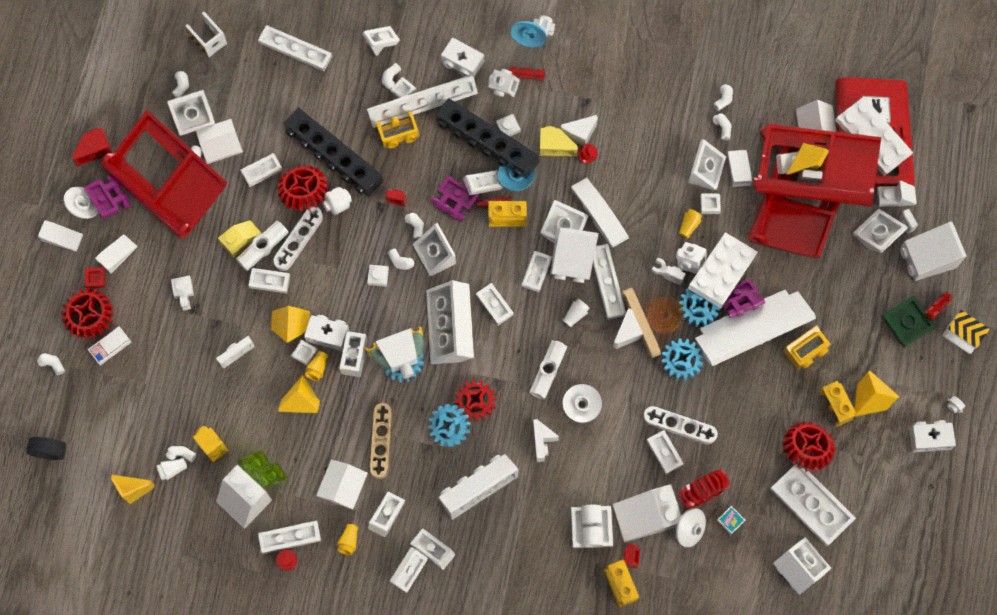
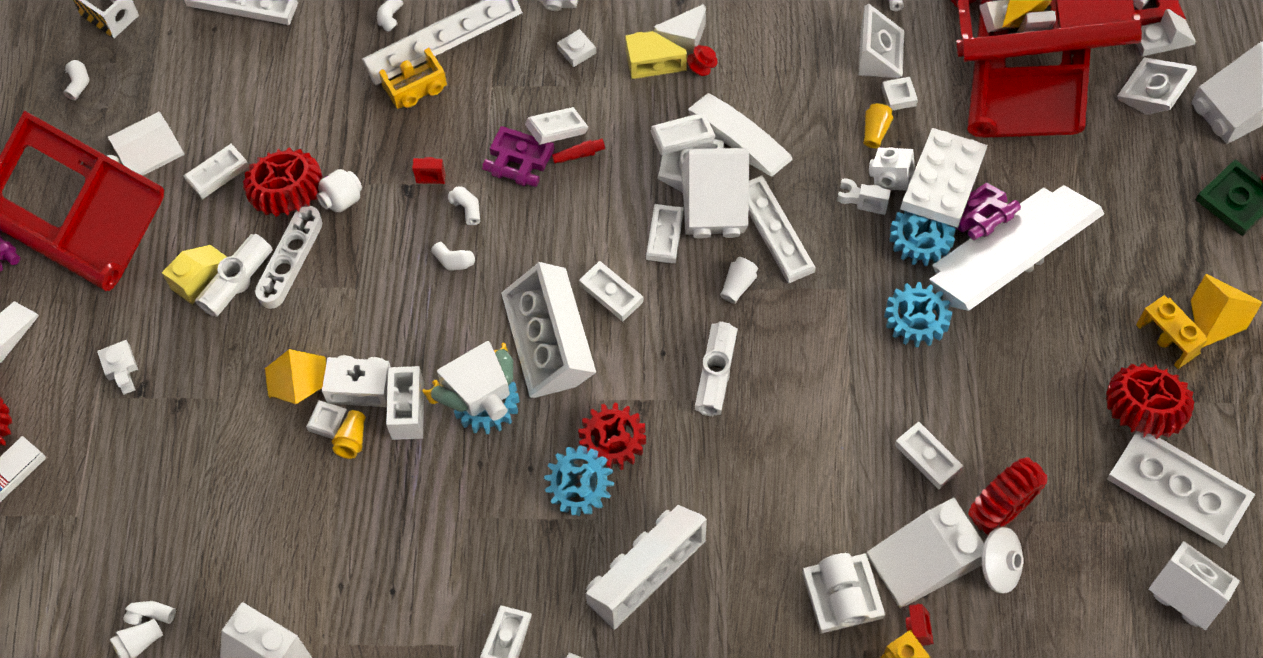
camera: 10 degrees left, 10 degrees down
(191, 112) = (96, 110): white slope -> none
(210, 443) = (195, 584): yellow window -> none
(235, 351) = (215, 438): white plate -> none
(261, 470) = (286, 609): clear neon green slope -> none
(269, 280) = (253, 323): white plate -> none
(300, 120) = (264, 93): black brick -> none
(300, 398) = (332, 489): yellow slope -> none
(342, 484) = (423, 608): white slope -> none
(378, 275) = (422, 285): white plate -> none
(381, 440) = (477, 527): tan beam -> none
(402, 88) = (409, 25): white tile -> none
(435, 251) = (504, 231): white slope -> none
(451, 111) = (550, 64): black brick -> none
(507, 213) = (602, 161): yellow window -> none
(508, 181) = (600, 97): medium azure dish -> none
(541, 435) = (730, 470): white slope -> none
(562, 206) = (682, 133): none -> white tile
(585, 394) = (783, 395): white dish -> none
(629, 330) = (827, 290): white slope -> none
(648, 338) = (842, 275): tan beam -> none
(656, 311) = (869, 243): clear orange dish -> none
(681, 422) = (940, 417): white beam -> none
(731, 520) = (1060, 538): teal tile -> none
(739, 168) = (928, 42): white slope -> none
(807, 348) = (1100, 262): yellow window -> none
(908, 219) = (1193, 57): white tile -> none

